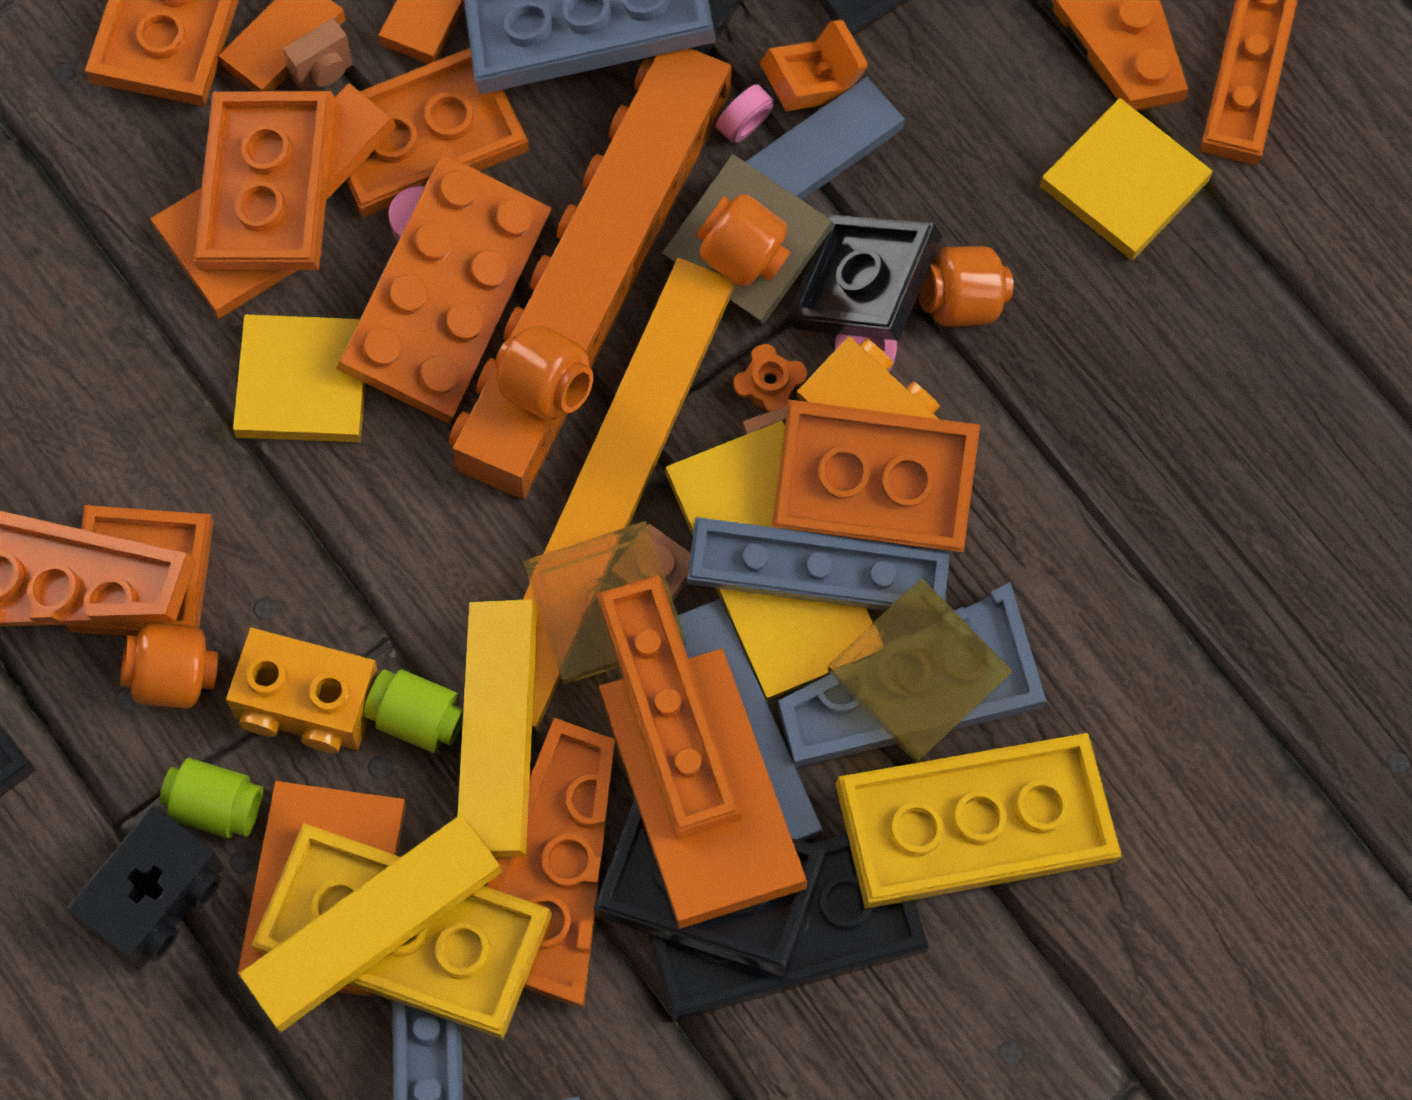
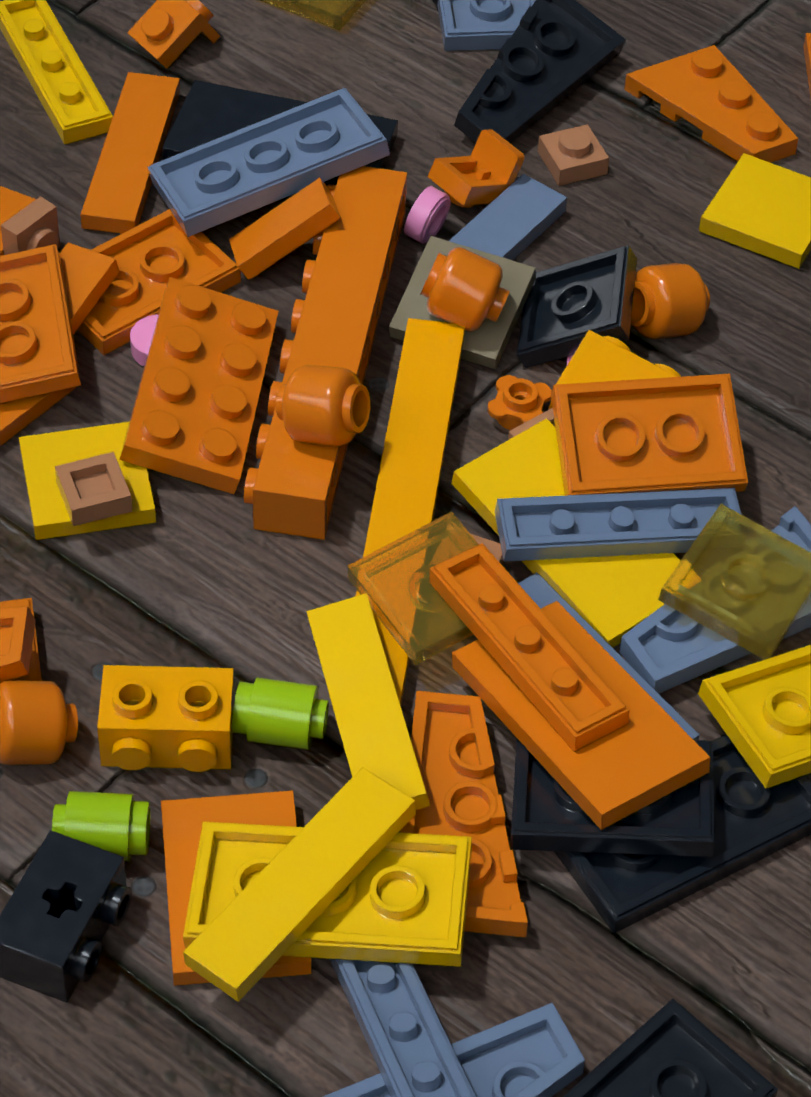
camera: 15 degrees left, 20 degrees down
(296, 406) = (93, 488): none -> nougat plate
(582, 108) = (284, 229): none -> orange tile
(933, 56) = (573, 155): none -> nougat plate

